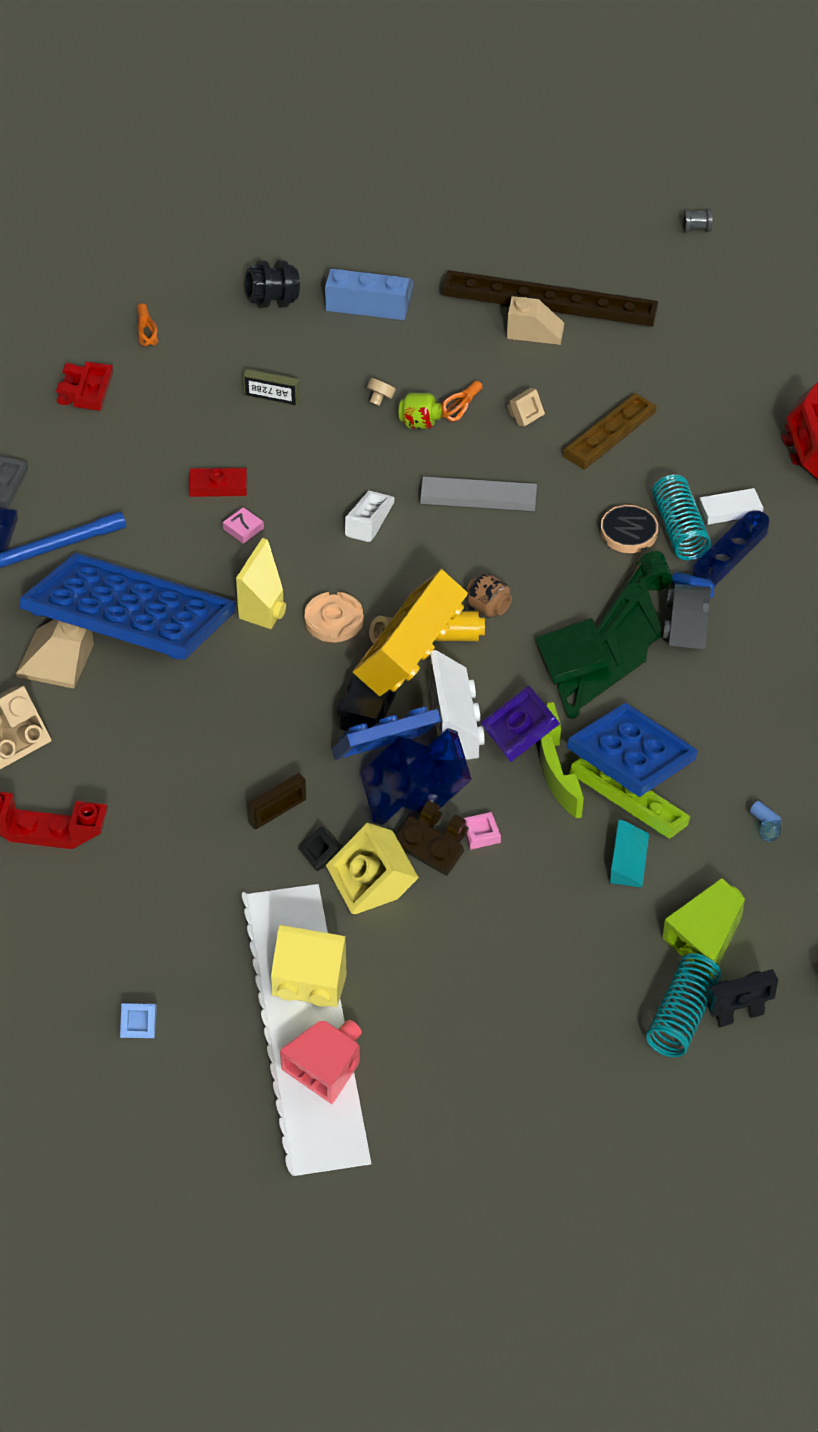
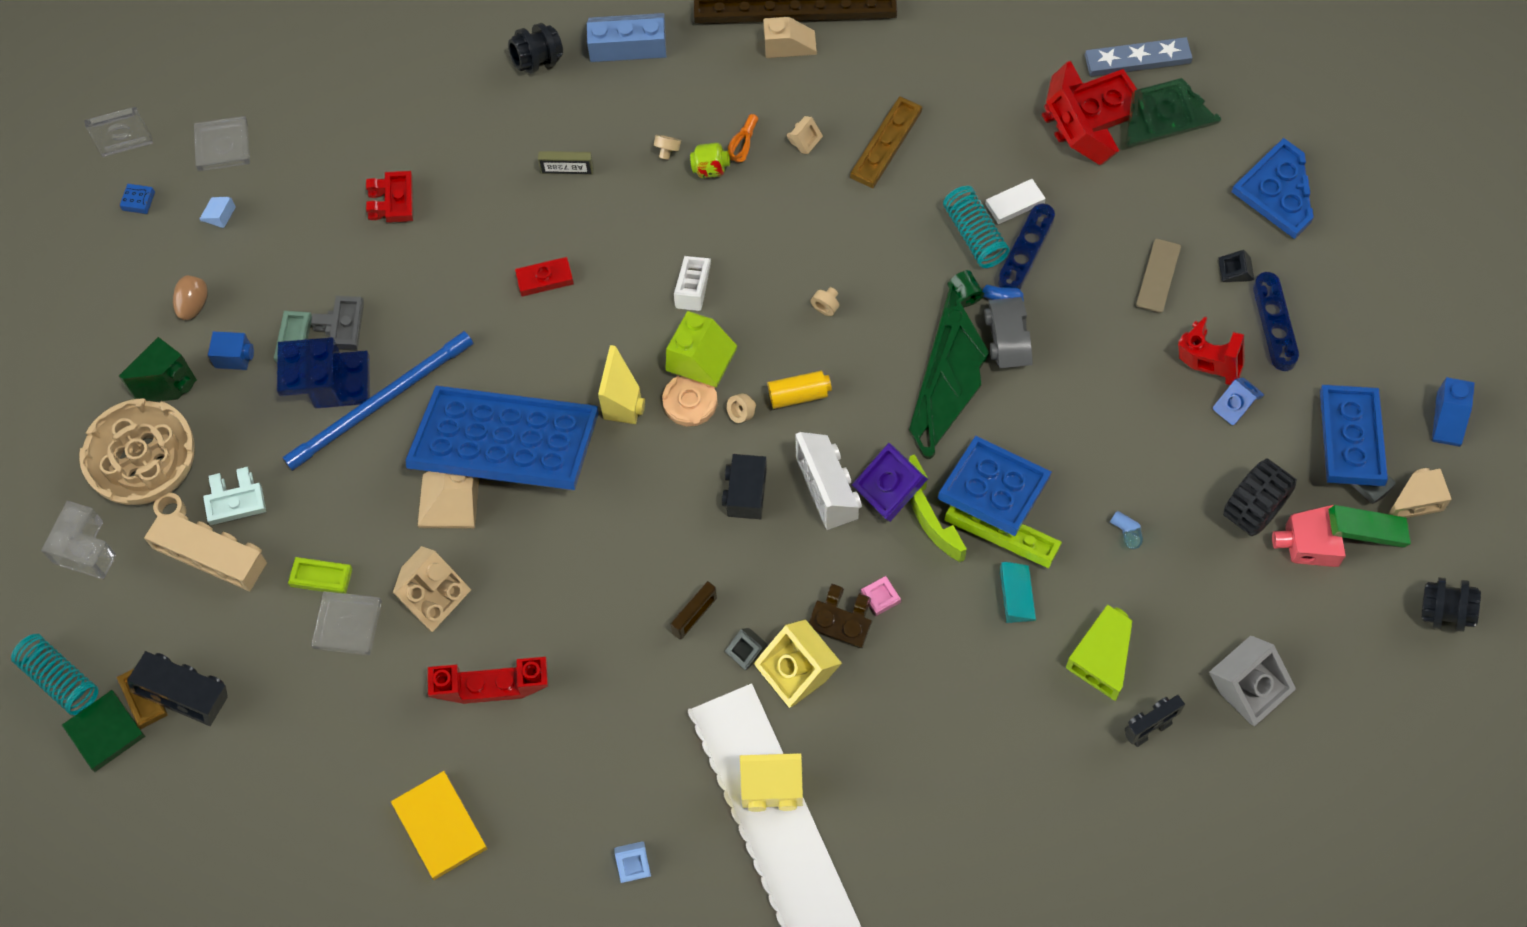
camera: 10 degrees left, 15 degrees up
(145, 321) = (425, 111): orange piece -> none
(243, 525) = (580, 319): bright pink tile -> none
(323, 1058) = (807, 864): coral torso -> none
(356, 570) = (699, 350): none -> lime slope
(384, 733) = (776, 526): blue plate -> none
(411, 634) = (774, 420): yellow brick -> none
(413, 773) = (812, 559): clear blue bracket -> none
(478, 493) = (785, 237): light grey tile -> none
(489, 595) = (824, 348): medium nougat head -> none
(502, 555) = (825, 301): none -> tan tile
(573, 651) = (915, 391): dark green tile -> none
(629, 528) = (930, 246): tile -> none
(668, 1029) = (1112, 777): teal piece -> none

